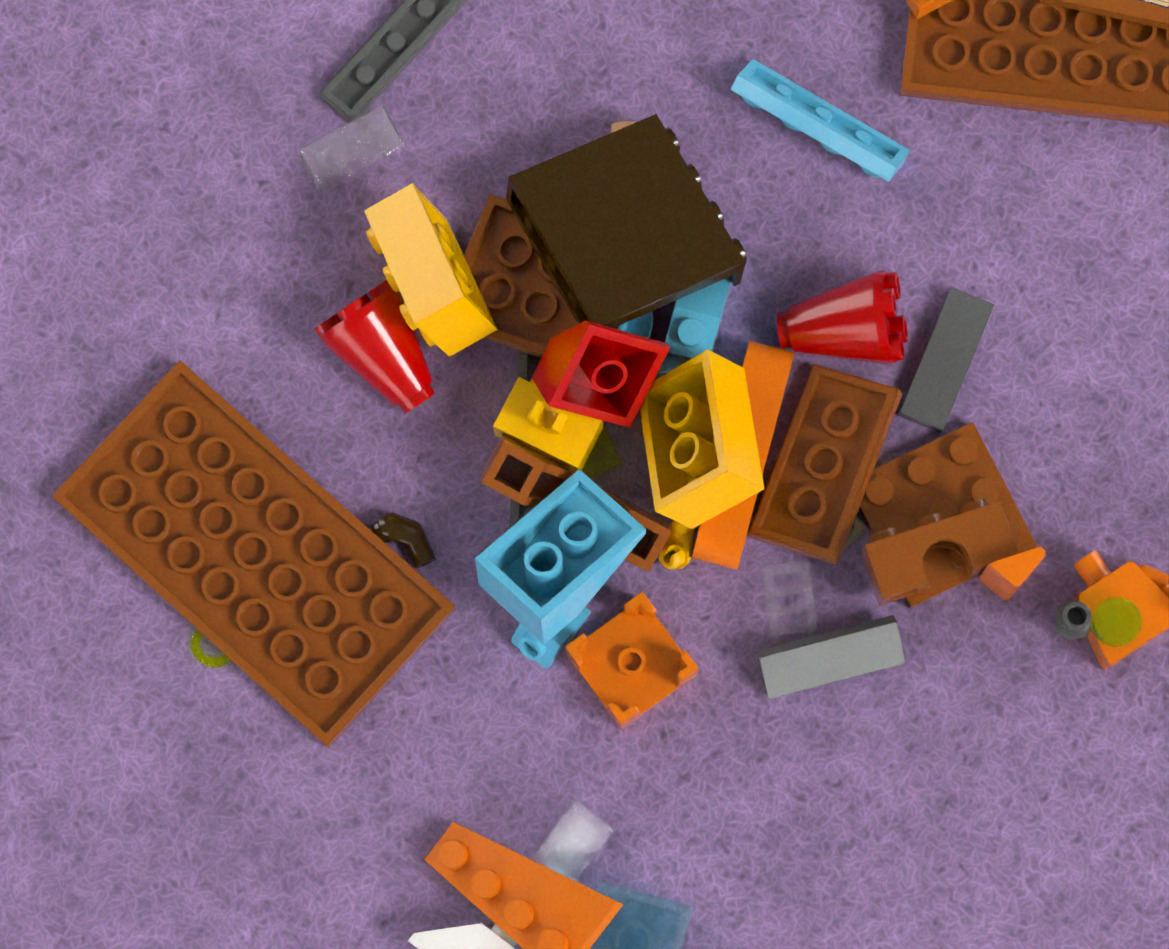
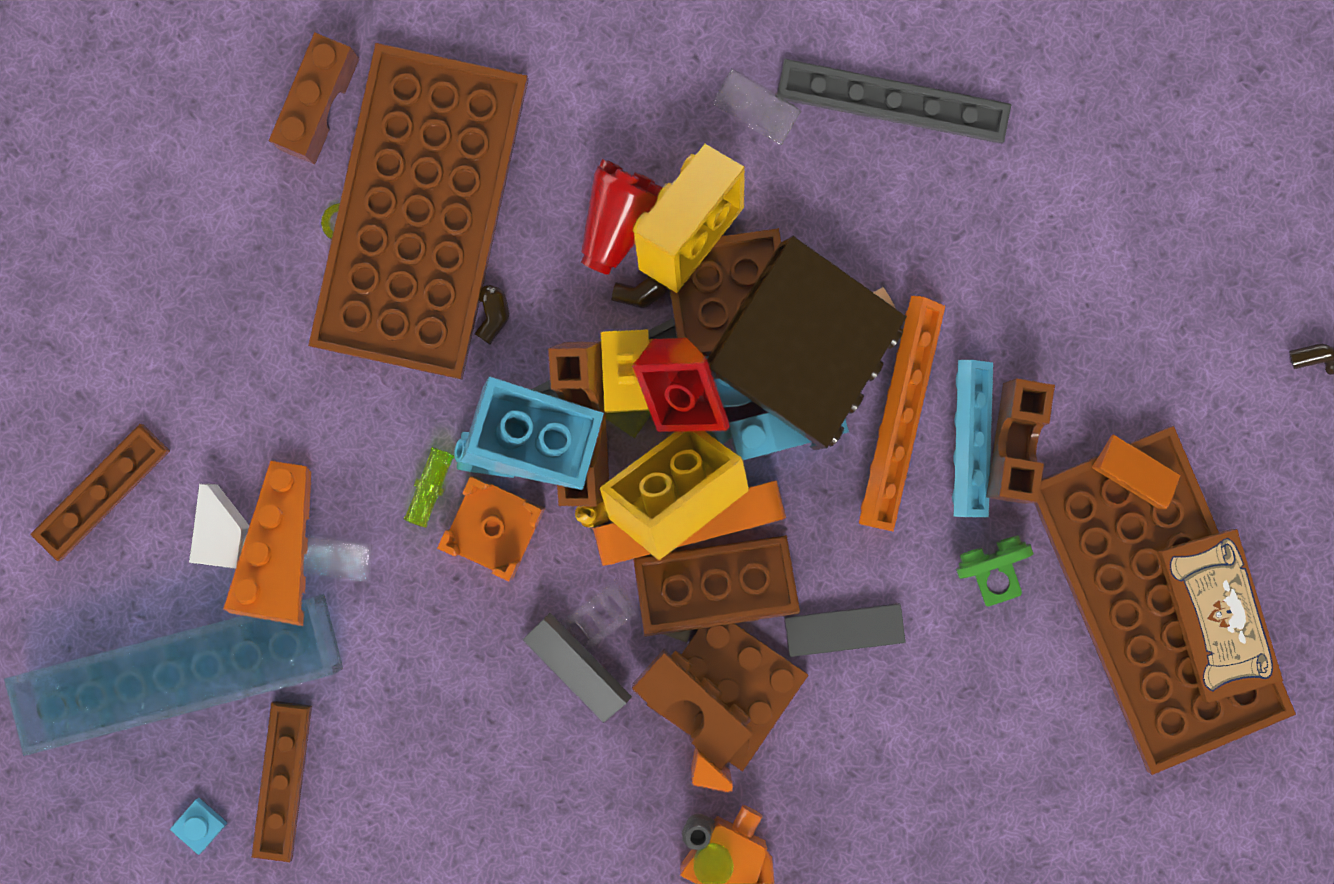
camera: 55 degrees right, 10 degrees up
(71, 592) = (321, 76): none -> dark orange arch
(476, 375) = (639, 296): none -> dark brown arm
(549, 706) = (429, 487): none -> clear neon green pin
(754, 177) = (902, 413): none -> orange plate
(822, 57) = (1014, 464): none -> dark orange arch
(849, 321) = (830, 546): red cone -> none
(952, 186) = (979, 565): none -> bright green bracket

